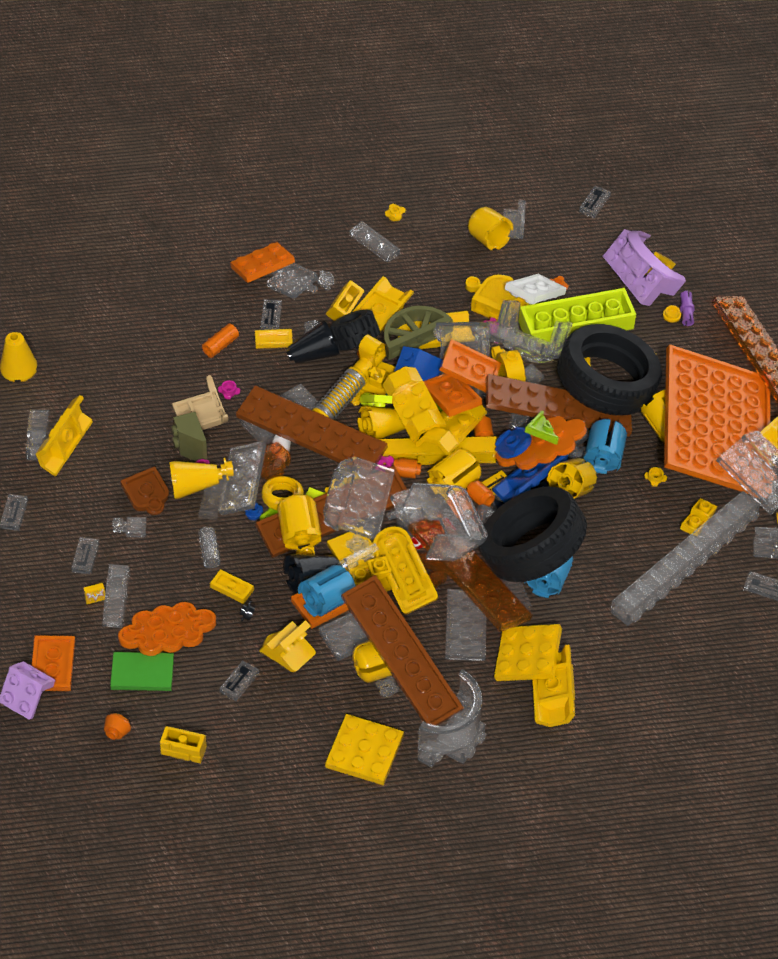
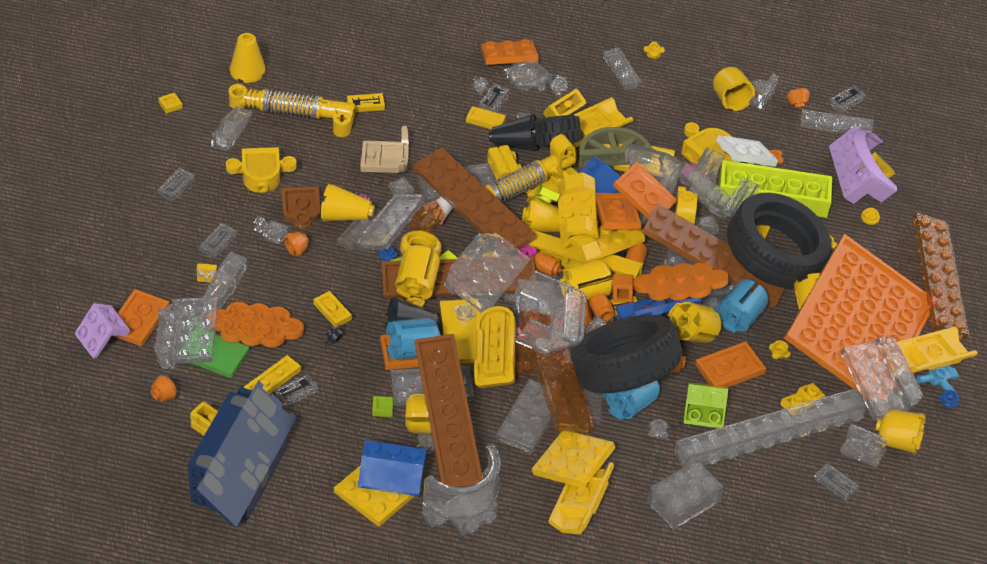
camera: 20 degrees right, 5 degrees down
(63, 438) = (254, 132): yellow piece -> none
(89, 466) = (261, 168): none -> yellow piece
(92, 387) = (297, 104): none -> yellow piece
(109, 661) = (186, 331): none -> clear plate
(151, 362) = (367, 102): none -> yellow tile
(163, 532) = (296, 243): none -> orange cone
(189, 437) = (361, 170): olive slope -> none
(209, 547) = (330, 270): clear axle -> none
(212, 677) = (276, 375): none -> yellow plate
(220, 340) = (435, 104): orange axle -> none
(227, 469) = (379, 208): yellow plate -> none
(227, 764) = (239, 453): none -> dark blue panel
(228, 389) = (421, 146): dark pink plate -> none
(231, 438) = (401, 186): none -> clear plate
(252, 305) = (480, 84): none -> clear plate
(289, 646) = (355, 377): yellow piece -> none
(315, 379) = (502, 161): none -> yellow brick
(327, 666) = (382, 406): none -> lime tile
(365, 554) = (449, 322): clear plate -> none
(373, 725) = (392, 468): none -> slope
(377, 566) = (468, 339): yellow slope -> none
(490, 467) = (622, 288): none -> orange brick
(512, 443) = (653, 272): blue tile -> none
(542, 428) = (684, 267): lime tile -> none
(552, 216) = (798, 97): none -> orange cone
(586, 590) = (658, 429): none -> clear plate
(595, 229) = (833, 122): none -> clear plate
(617, 555) = (705, 405): none -> lime slope
(620, 509) = (730, 366): none -> orange plate
(642, 649) = (685, 494): none -> clear brick
(687, 308) = (887, 216): medium lavender pin -> none

